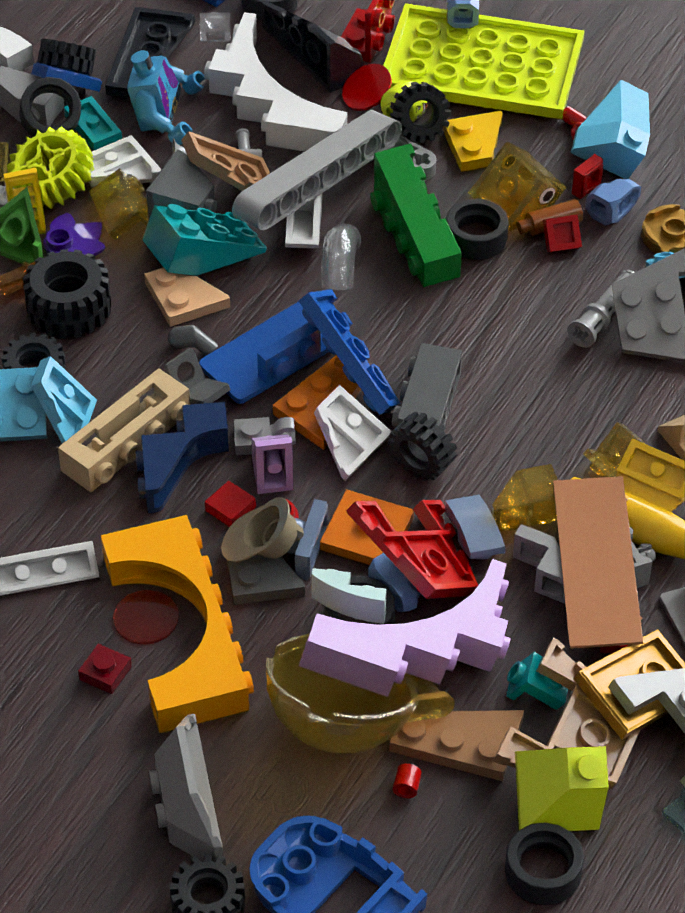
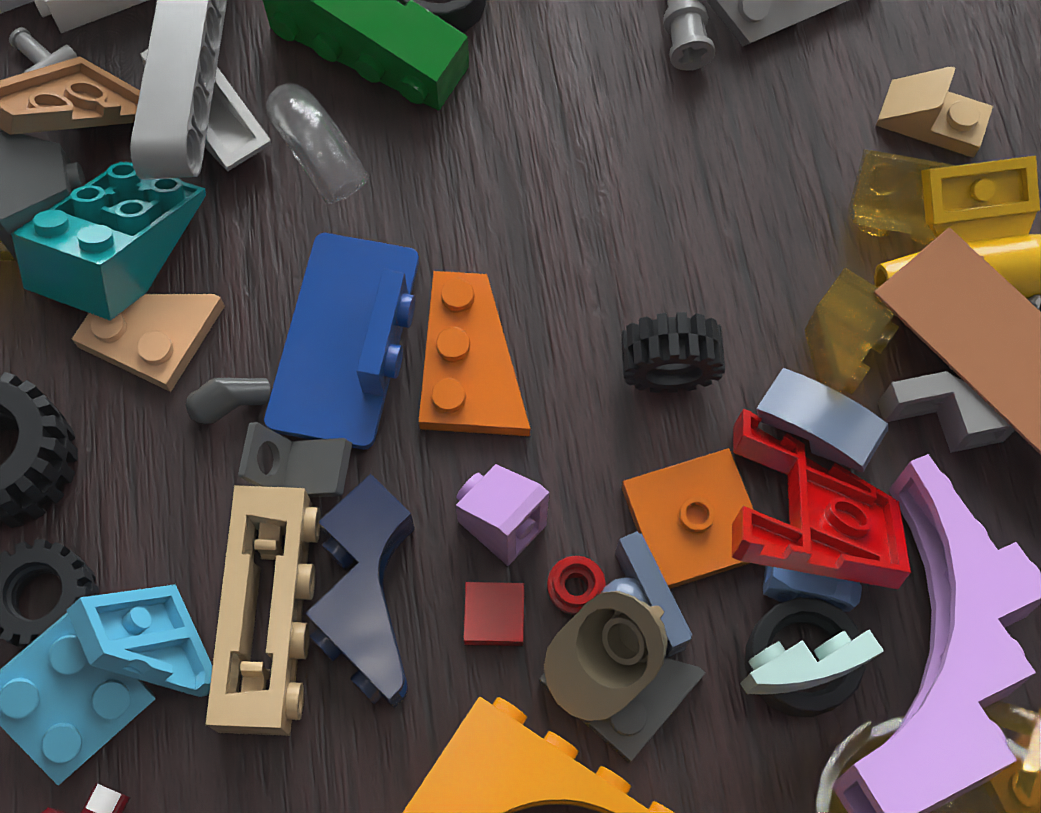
camera: 40 degrees left, 20 degrees up
(260, 427) = (434, 480): light grey plate -> none
(349, 430) = (555, 392): white wing -> none
(351, 351) = (463, 276): blue wing -> none
(431, 384) = (596, 263): dark grey brick -> none

